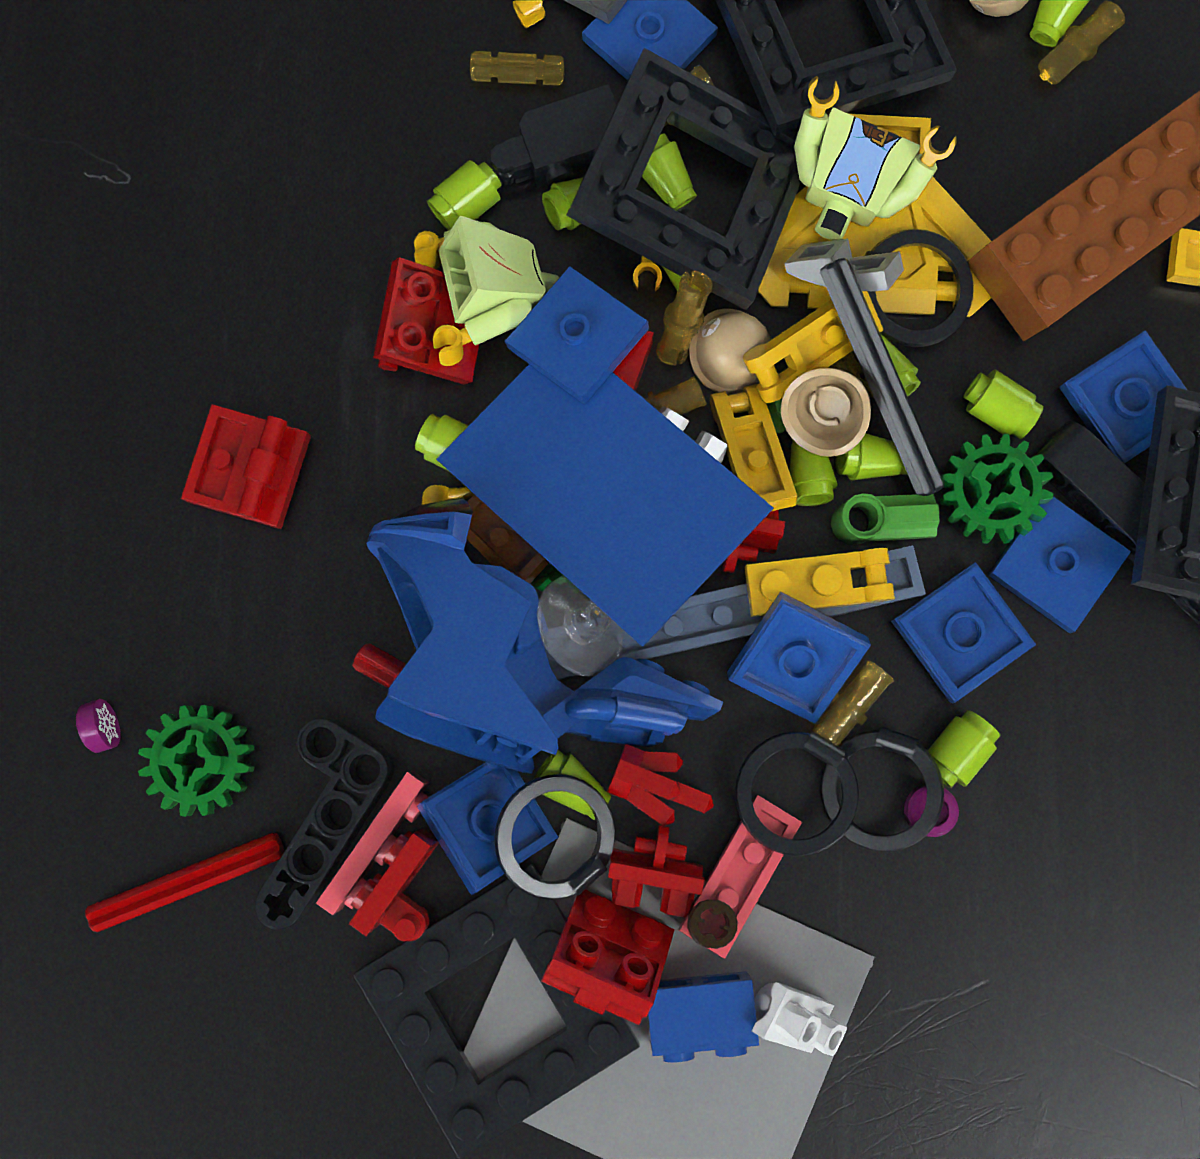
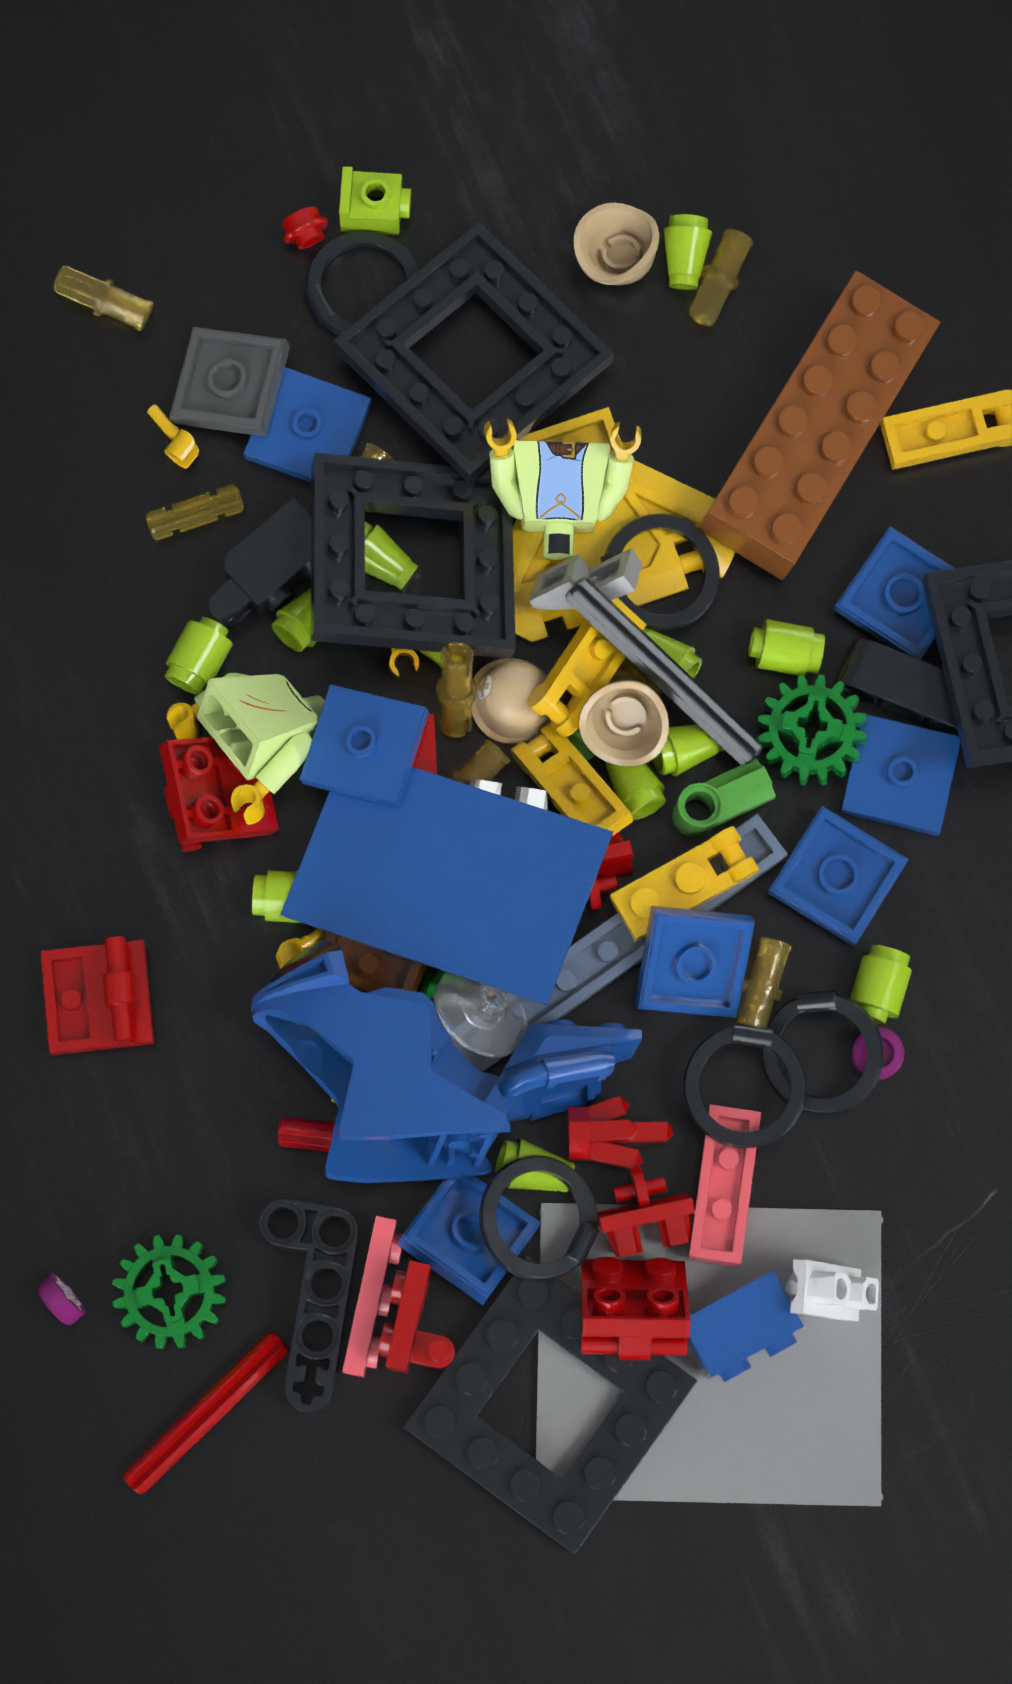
camera: 25 degrees left, 5 degrees down
(708, 939) = (712, 1220): dark brown bush -> none

